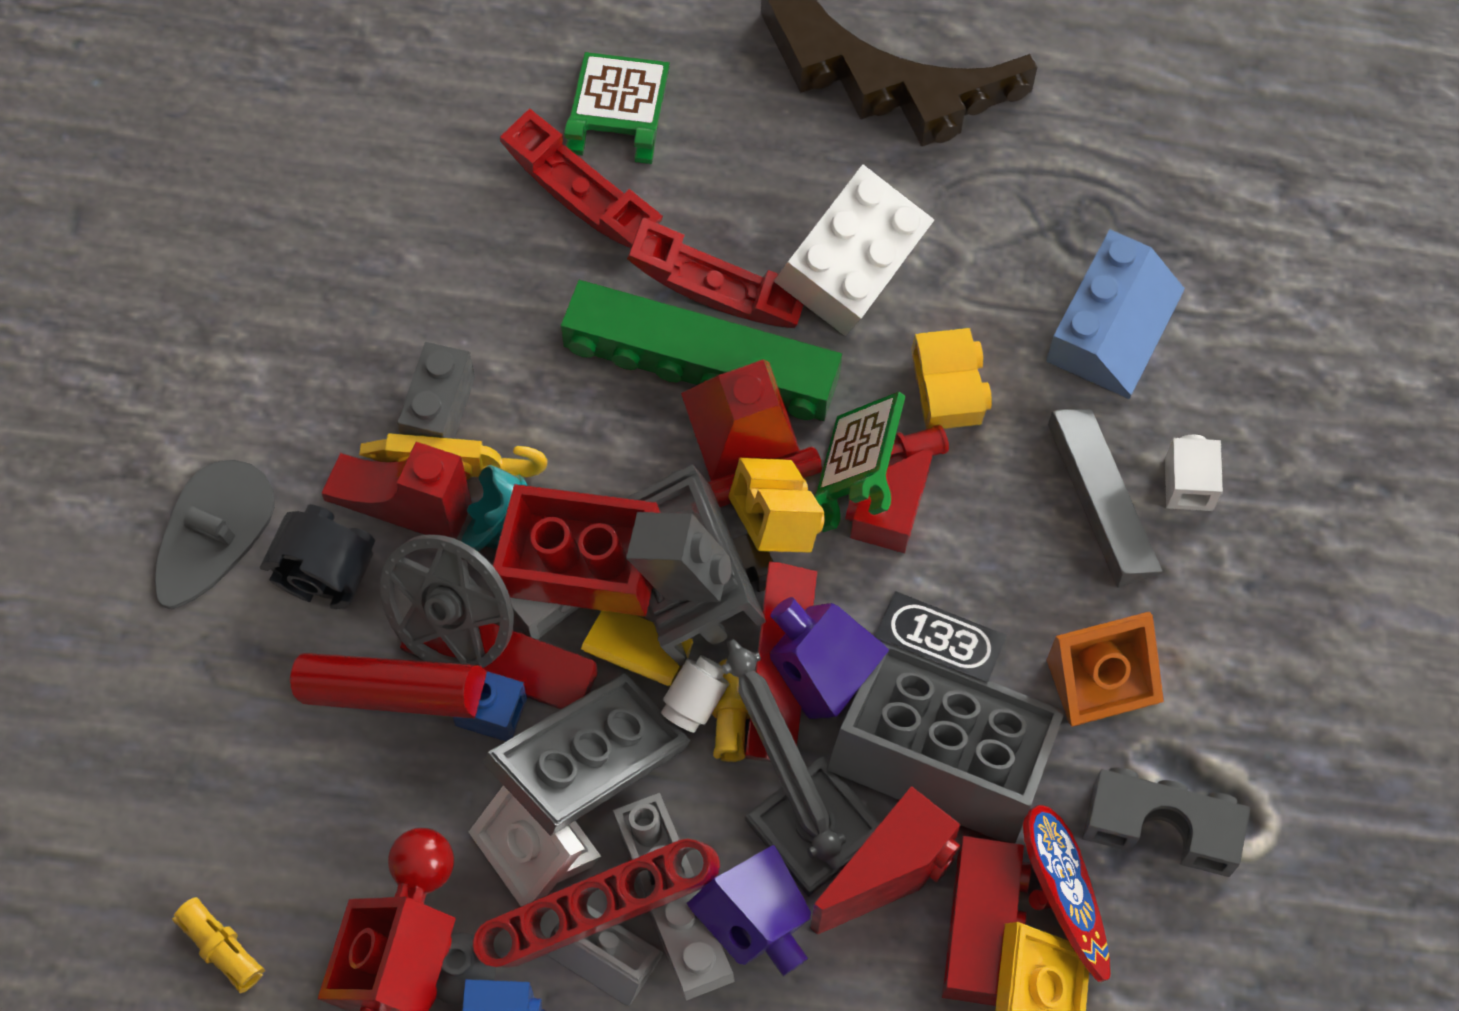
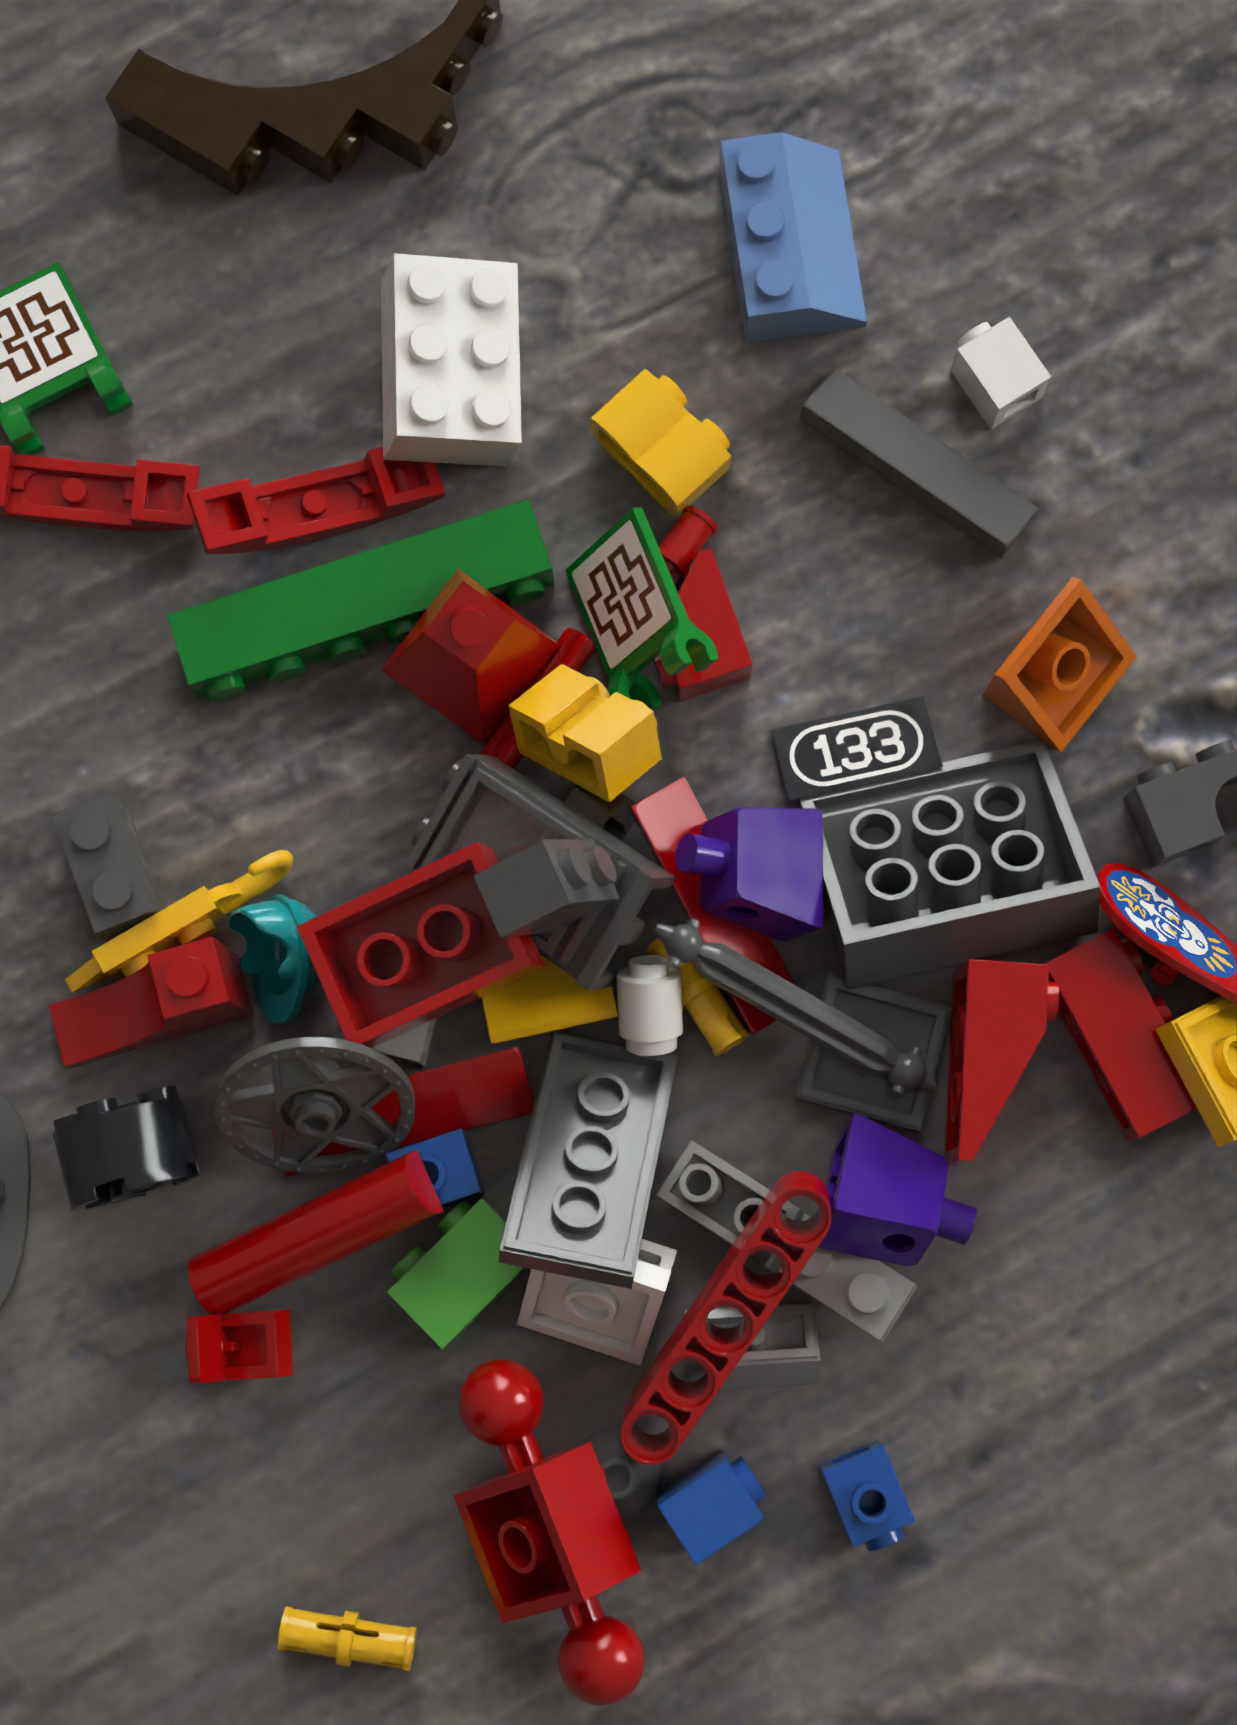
camera: 30 degrees left, 15 degrees up
(292, 721) = (239, 1346): none -> red bracket
(451, 773) = (457, 1275): none -> bright green brick

